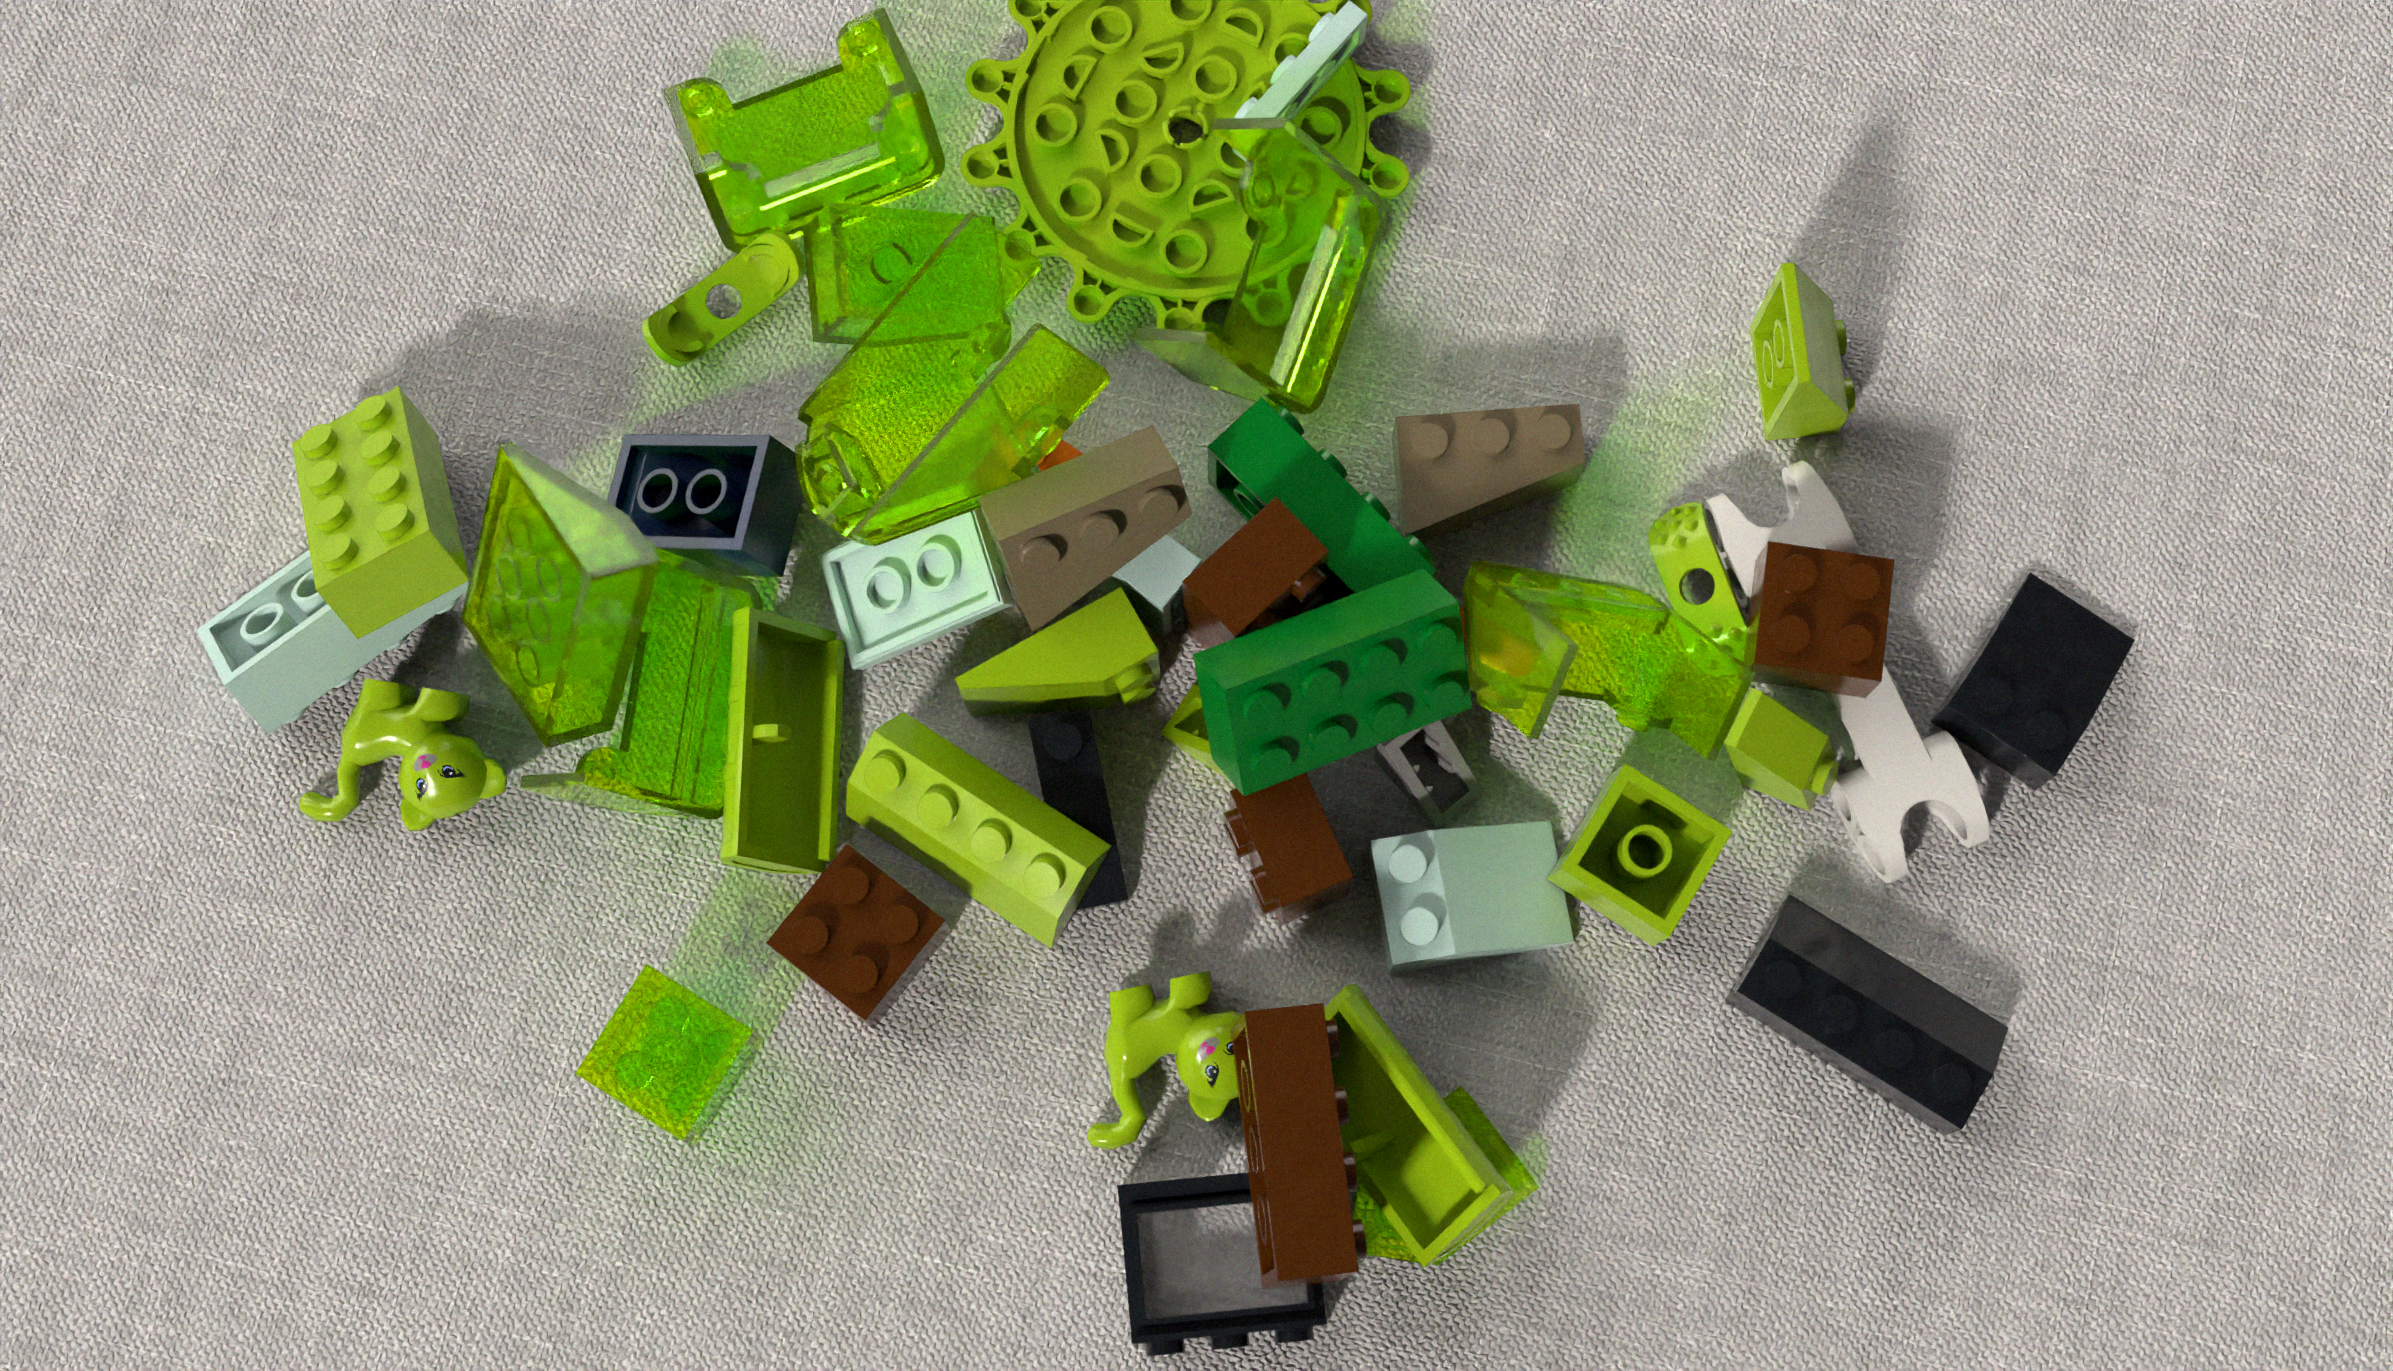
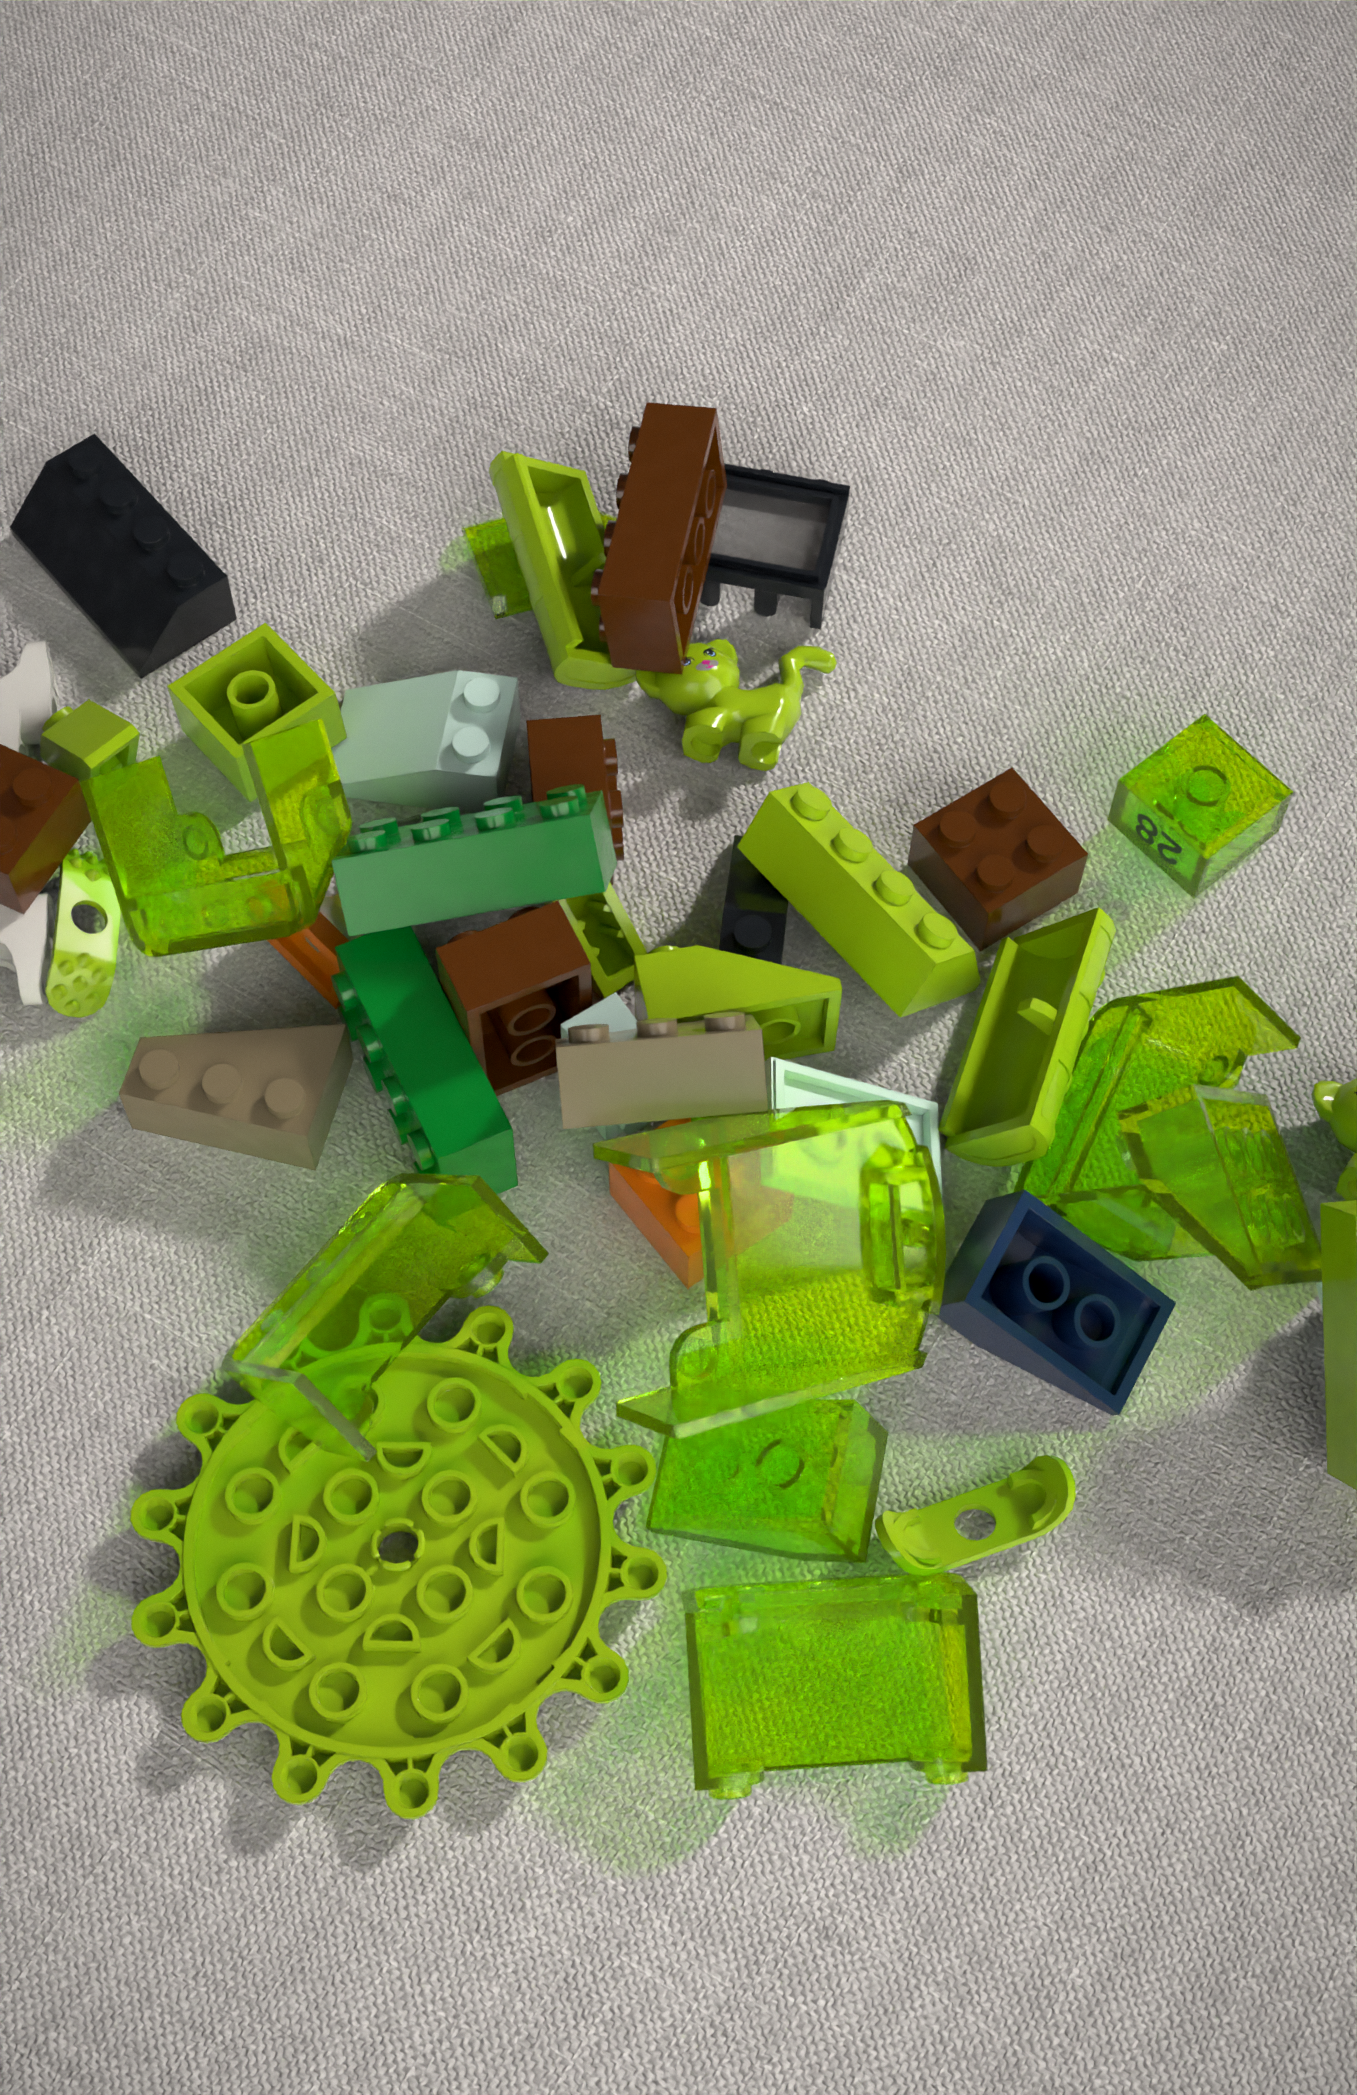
camera: 165 degrees left, 15 degrees down
(1302, 77) = (253, 1528): light aqua plate -> none

